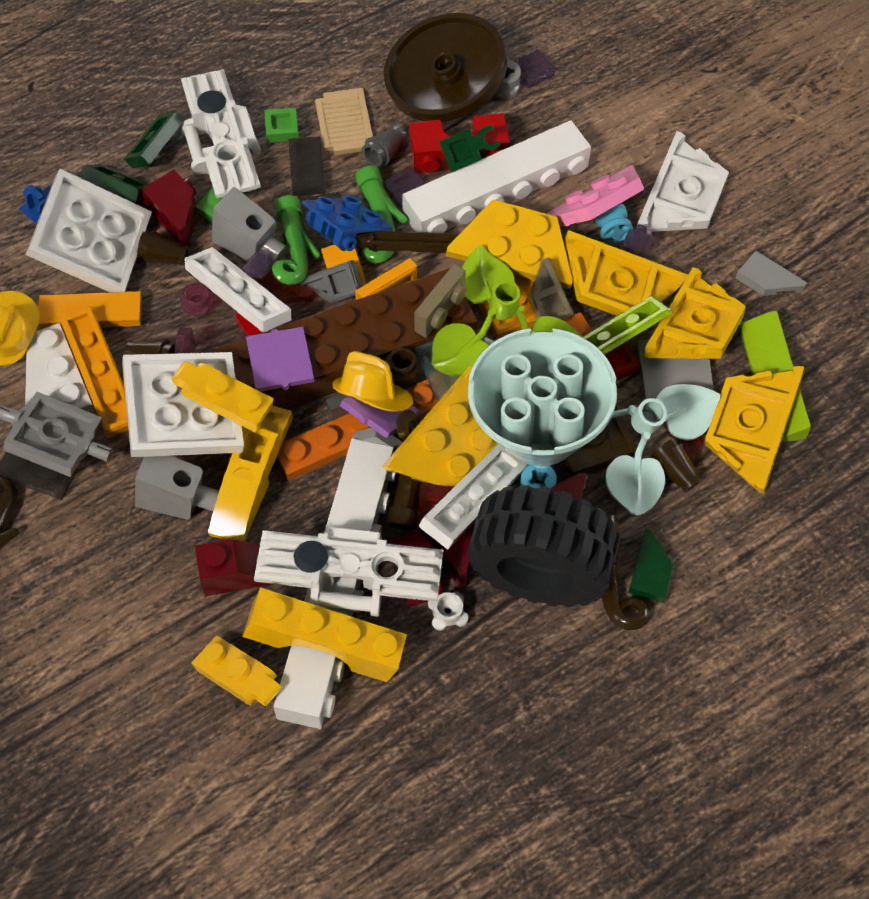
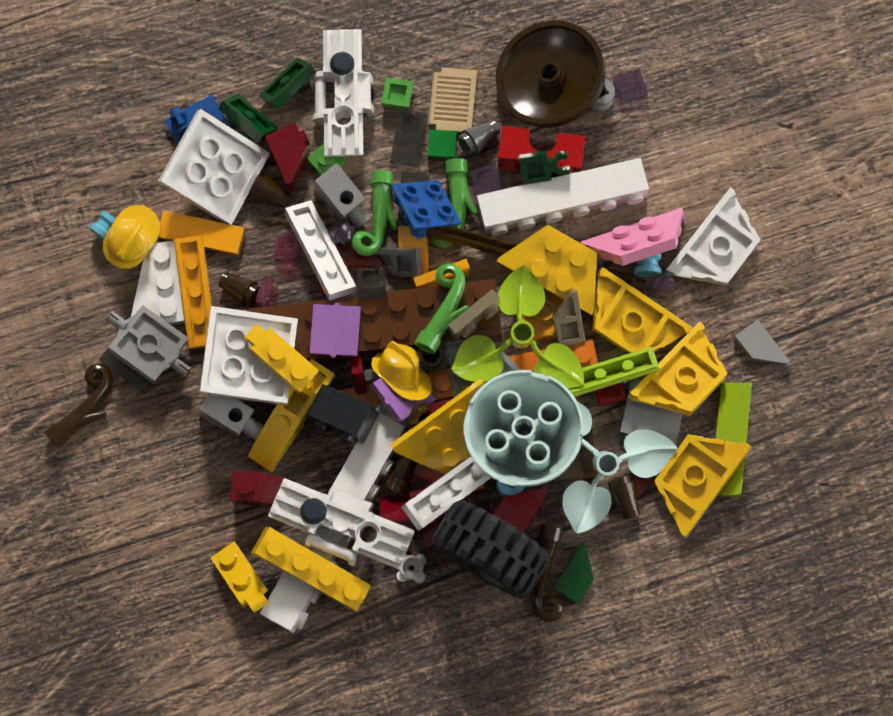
camera: 20 degrees right, 15 degrees up
(309, 307) = (371, 283): none -> clear smoke tile
(314, 448) = (342, 414): none -> black brick
(319, 405) = (358, 374): none -> dark red tile
(345, 162) = (442, 144): none -> green tile
(396, 337) = (430, 337): none -> bright green plant

